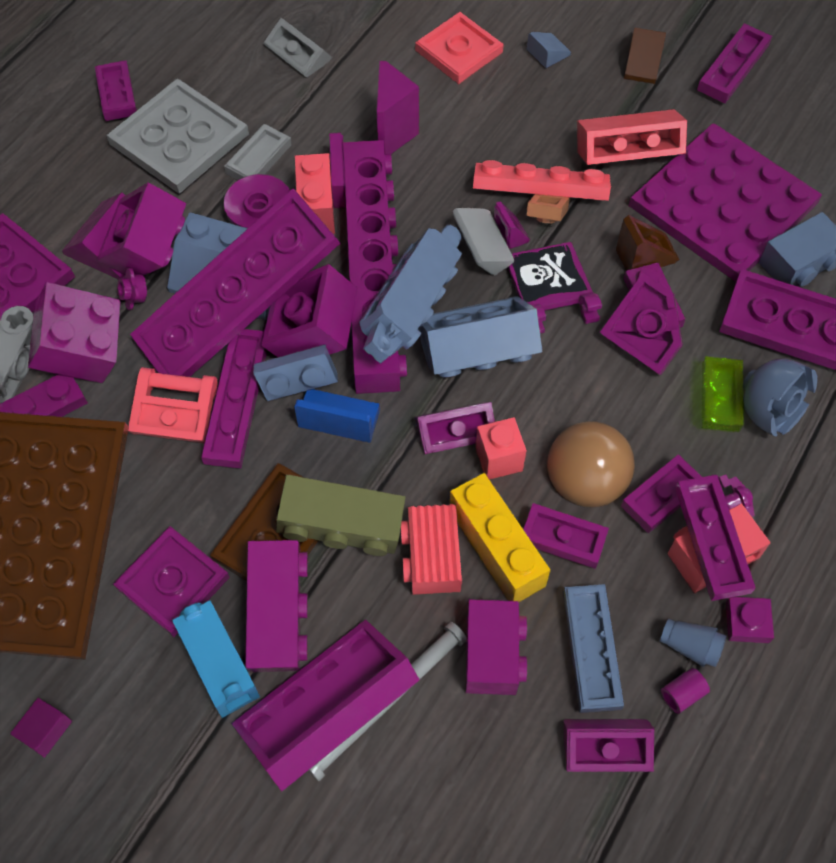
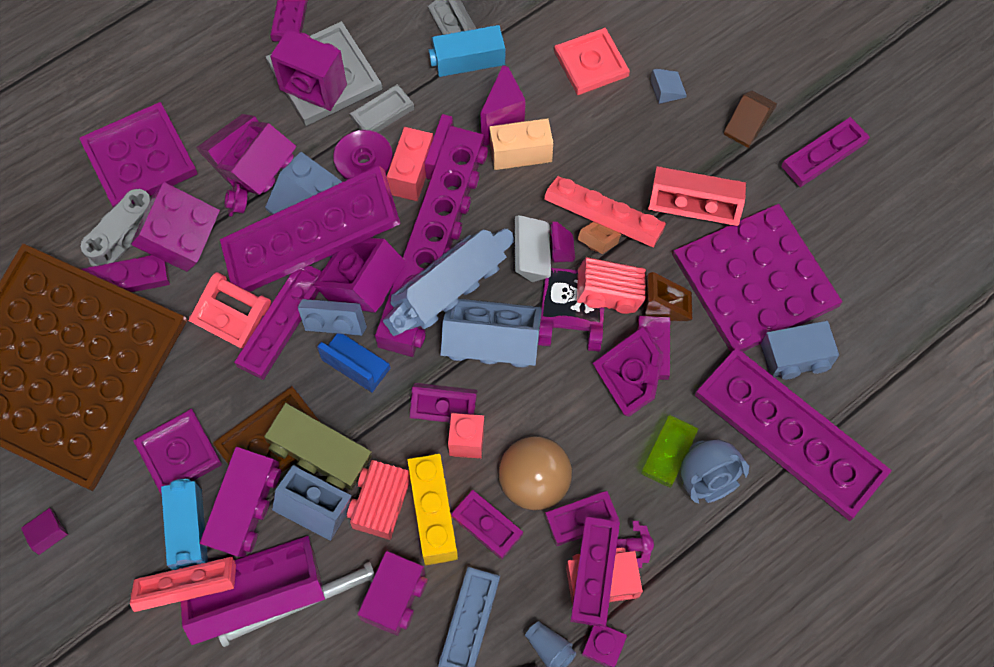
camera: 20 degrees right, 5 degrees up
(166, 125) = (309, 69): none -> magenta brick
(241, 725) = (183, 584): none -> coral tile
(326, 70) = (467, 51): none -> dark azure brick
(358, 578) = (311, 502): none -> sand blue brick
(425, 141) = (521, 144): none -> light nougat brick
(585, 247) = (611, 285): none -> coral brick

